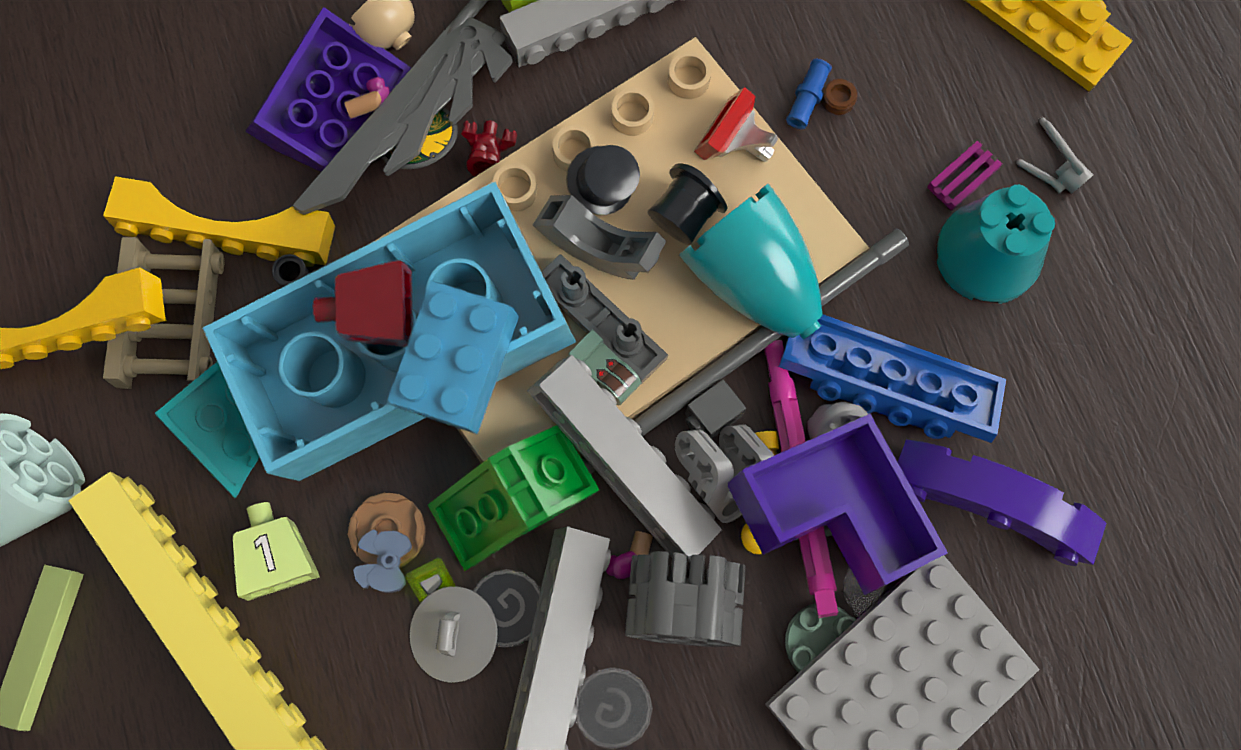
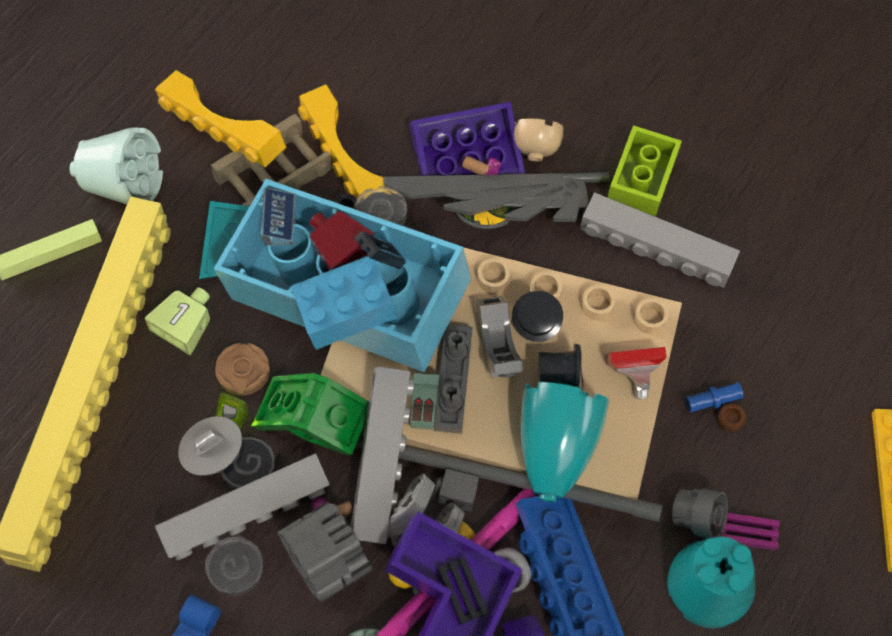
camera: 55 degrees right, 10 degrees down
(271, 350) = (278, 217): none -> slope
(330, 235) = (384, 204): none -> clear tile
(389, 548) = (216, 383): sand blue piece -> none
(430, 266) = (379, 250): none -> black tile
(486, 146) = (511, 246): dark red piece -> none
(846, 478) = (472, 586): none -> black tile
(922, 201) = (701, 511): none -> dark grey piece
(1071, 173) = (814, 596): light grey plant -> none

